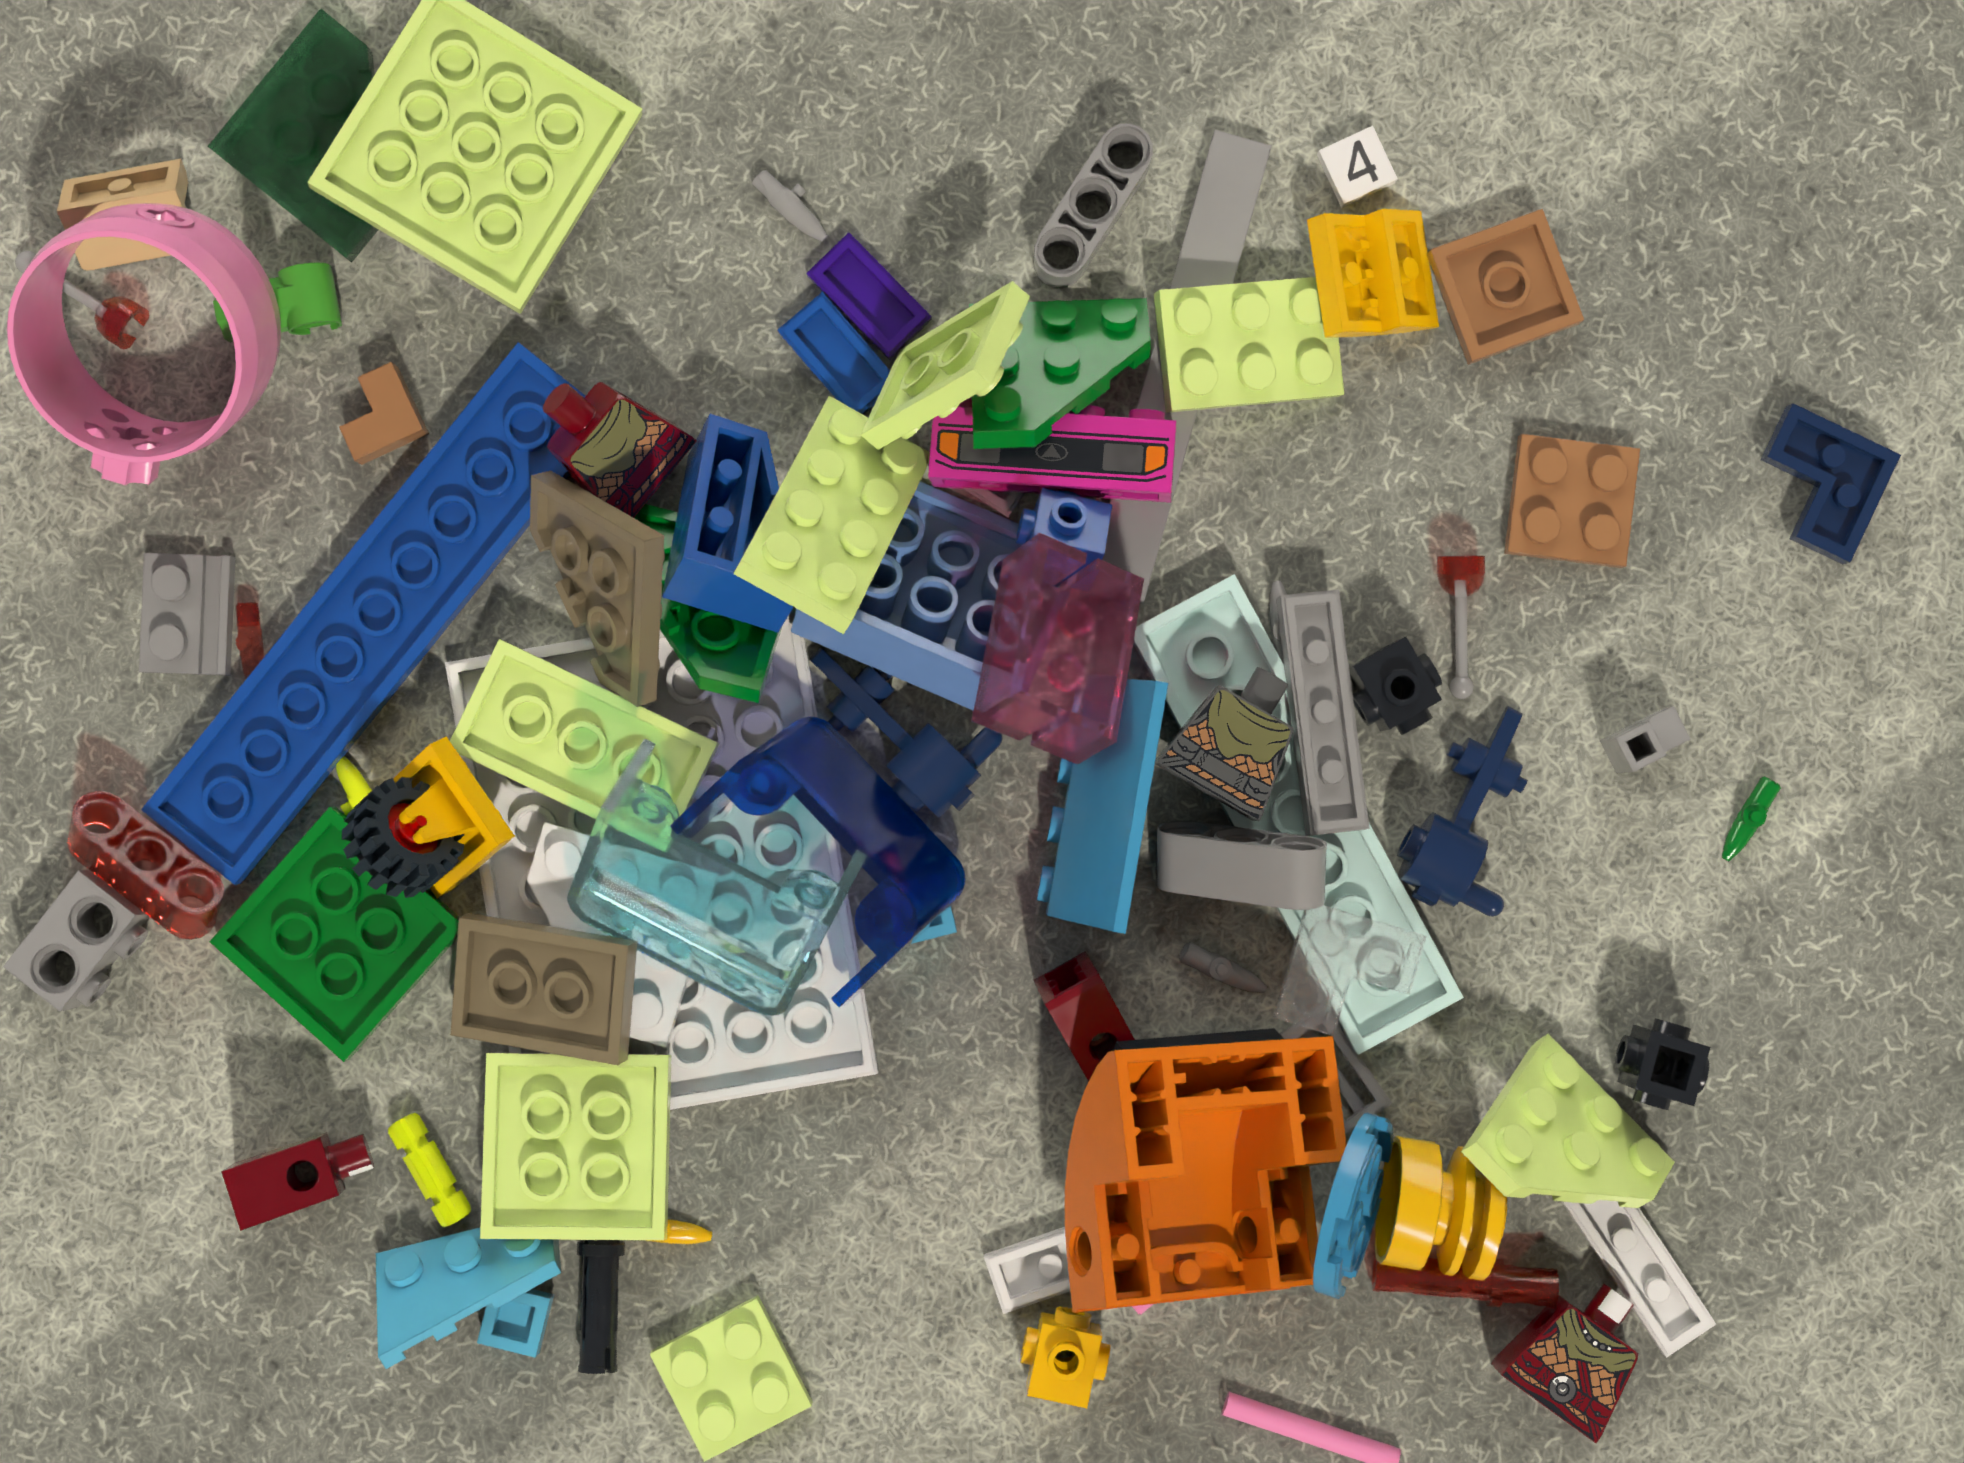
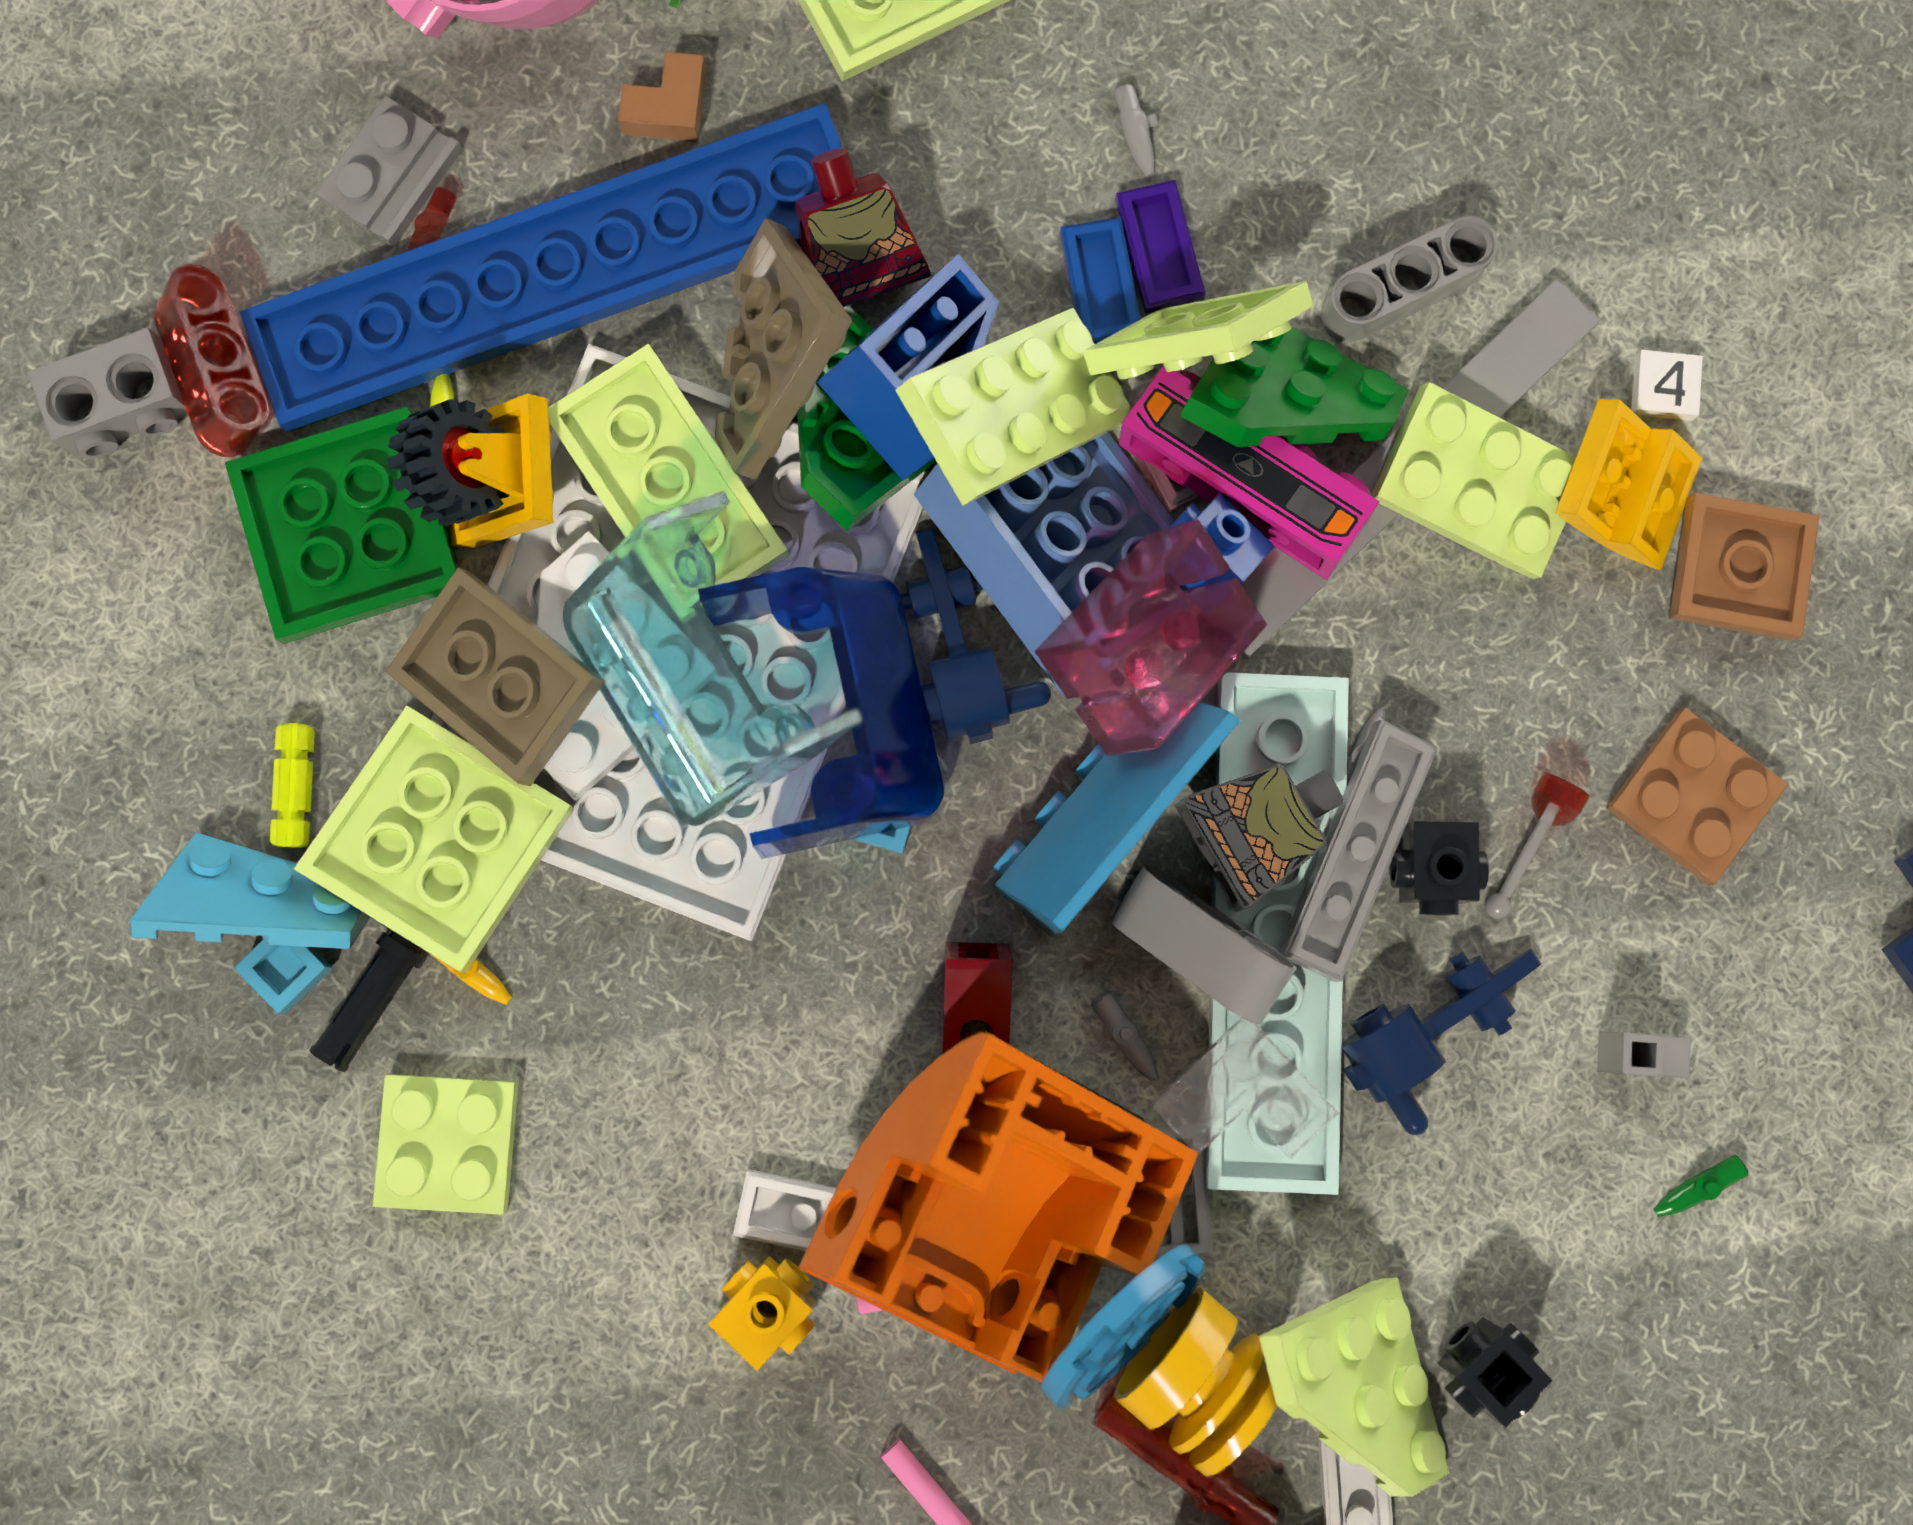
camera: 25 degrees right, 5 degrees down
(269, 1188) = (140, 711): dark red torso -> none

